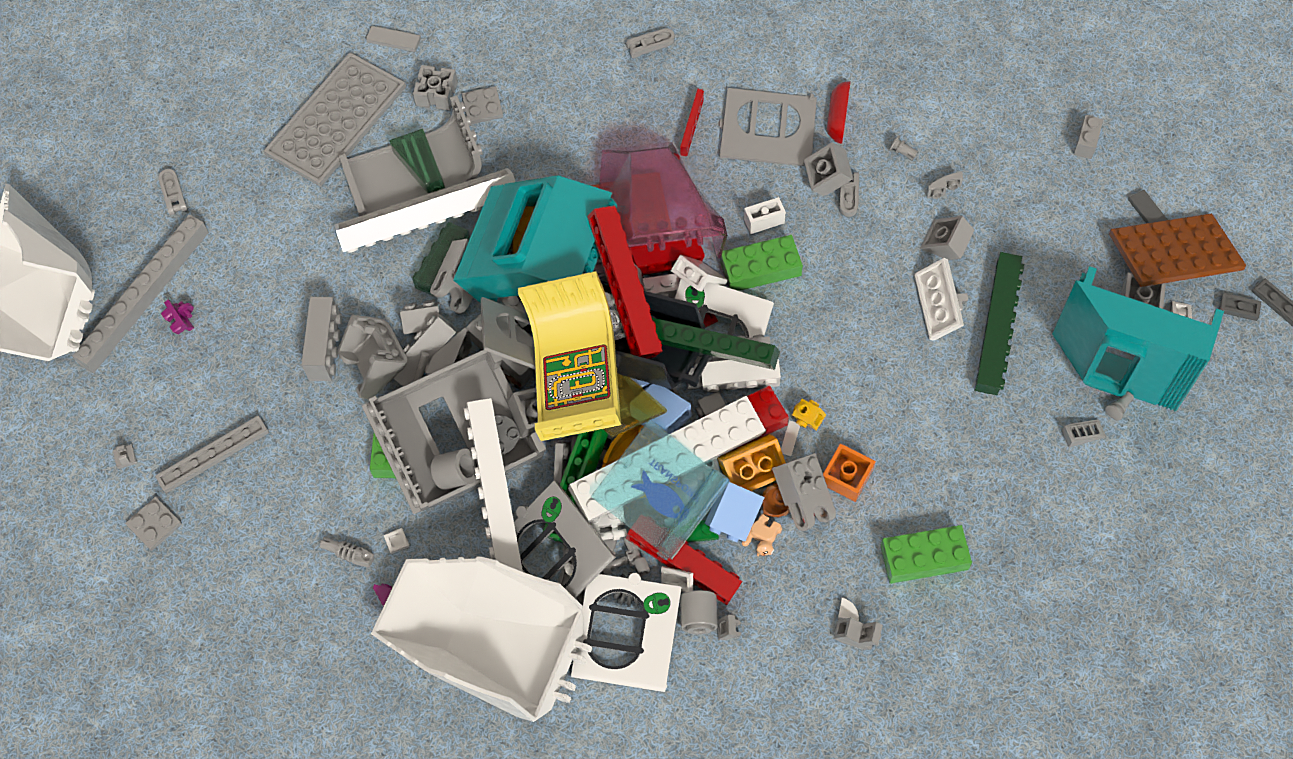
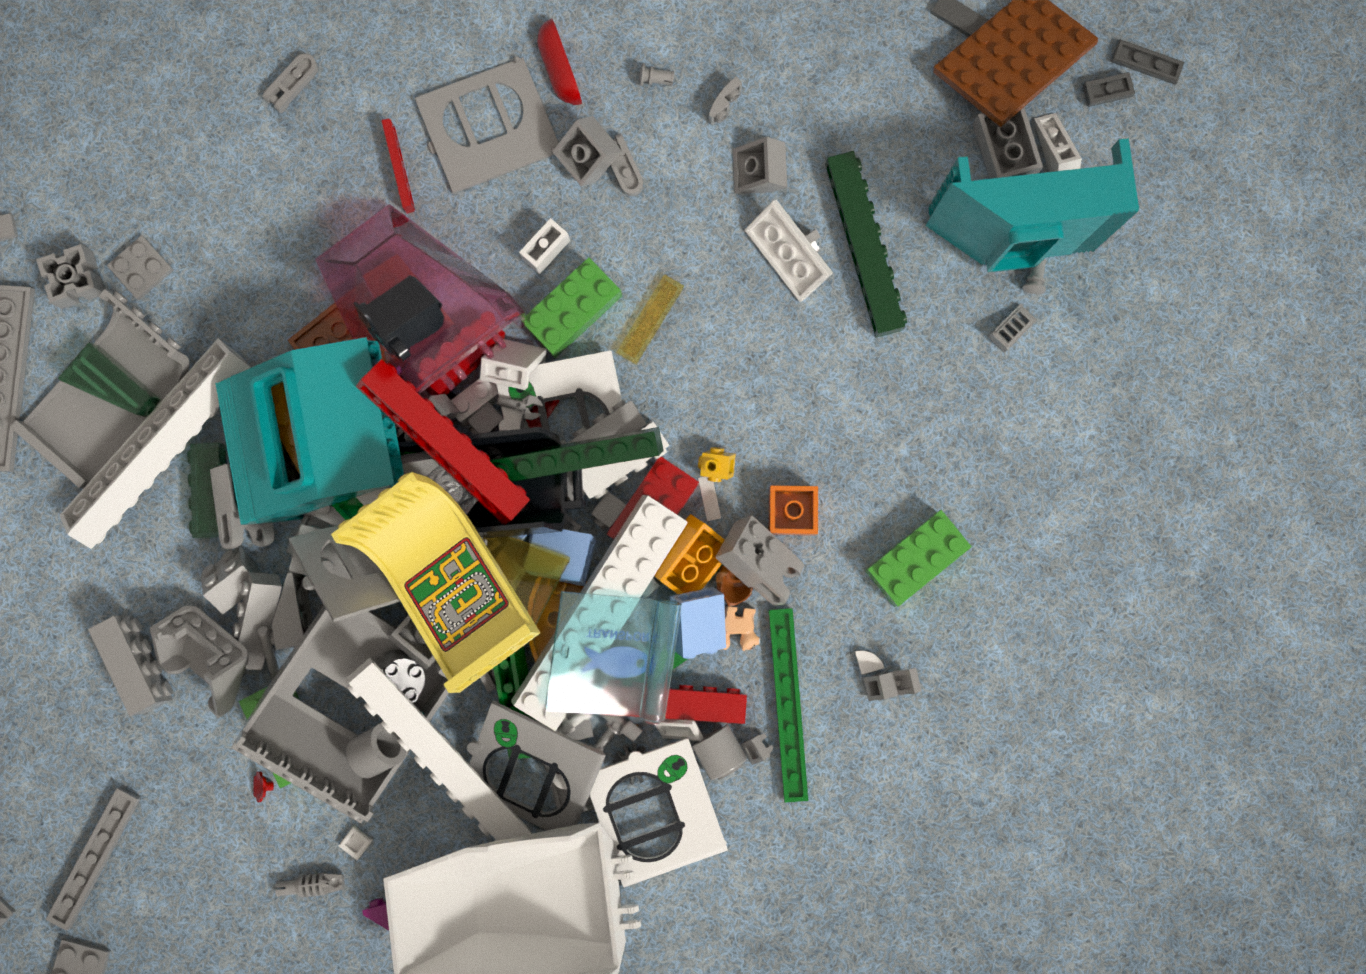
camera: 30 degrees left, 20 degrees up
(355, 467) = (261, 786): none -> red plant
(644, 184) = (402, 316): none -> black piece
(681, 296) = (521, 405): none -> light grey bar
(769, 611) = (788, 705): none -> green plate
(813, 299) = (650, 319): none -> clear yellow tile

